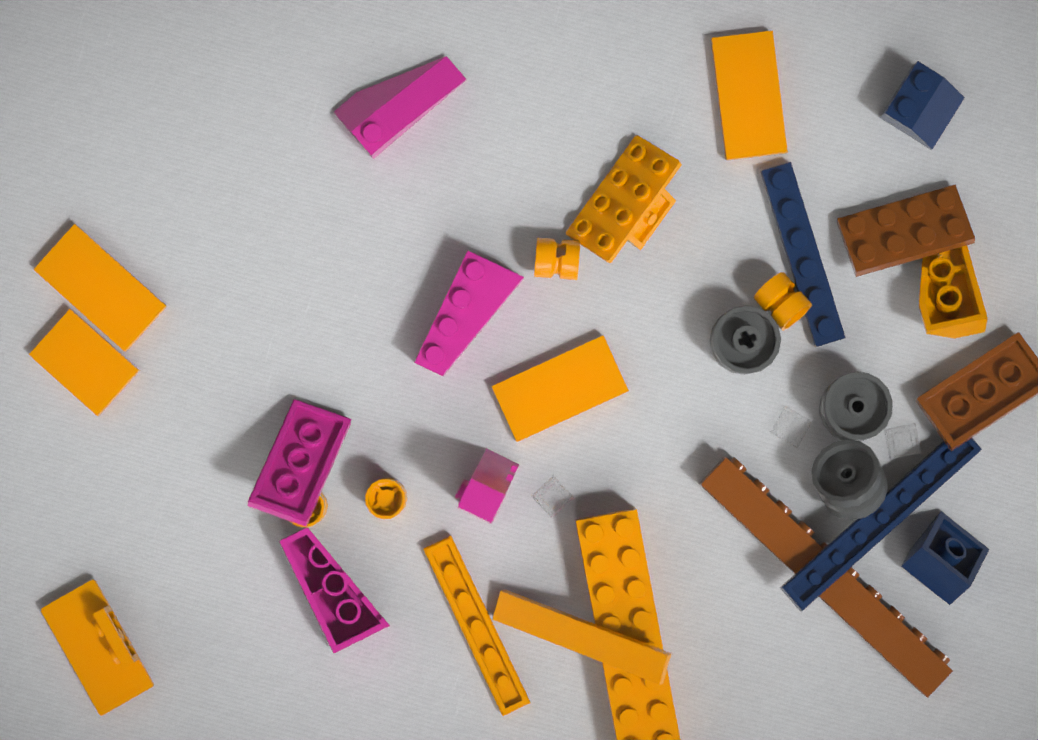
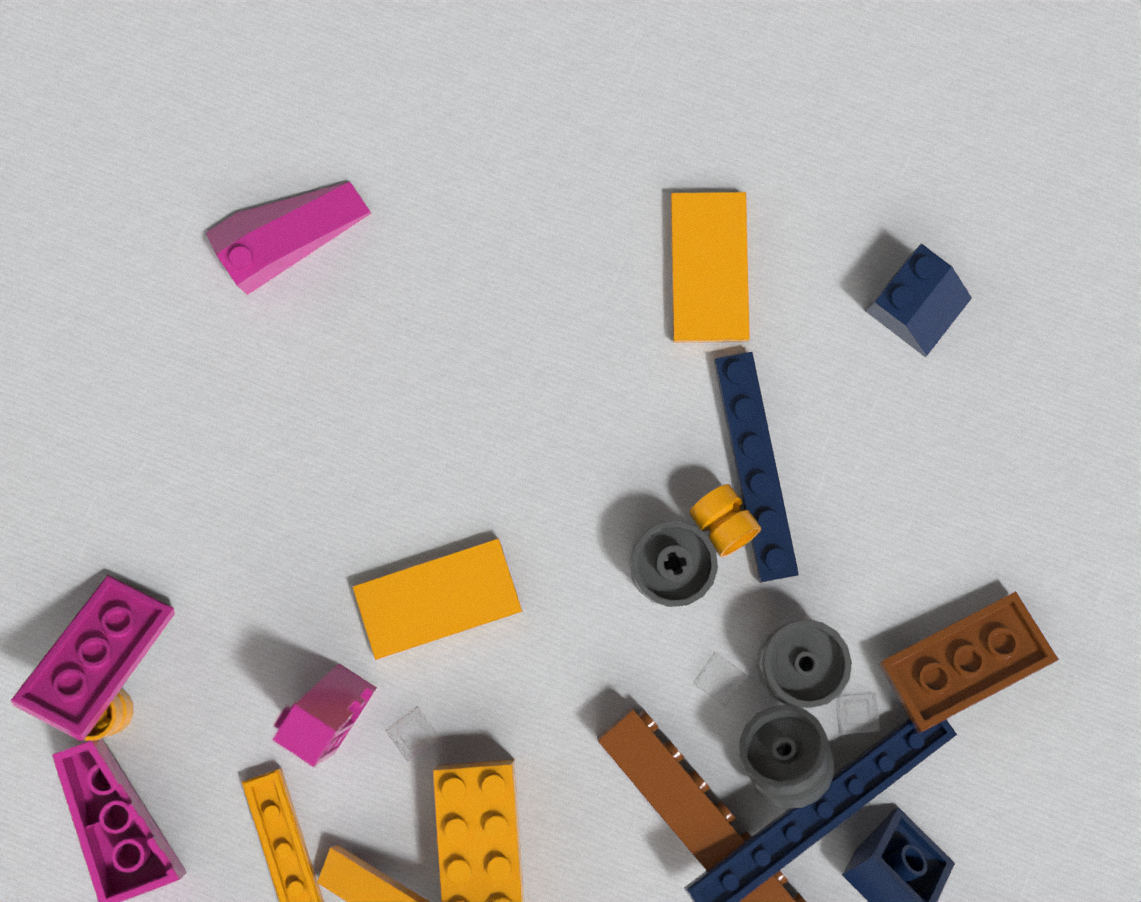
camera: 10 degrees right, 5 degrees down
(386, 498) = (200, 713): light orange wheel -> none
(469, 305) = (330, 490): dark pink wedge -> none
(557, 258) = (451, 437): light orange wheel -> none
(627, 201) = (547, 379): light orange bracket -> none
(905, 230) = (886, 450): dark orange plate -> none
(951, 295) = (934, 523): light orange wedge -> none

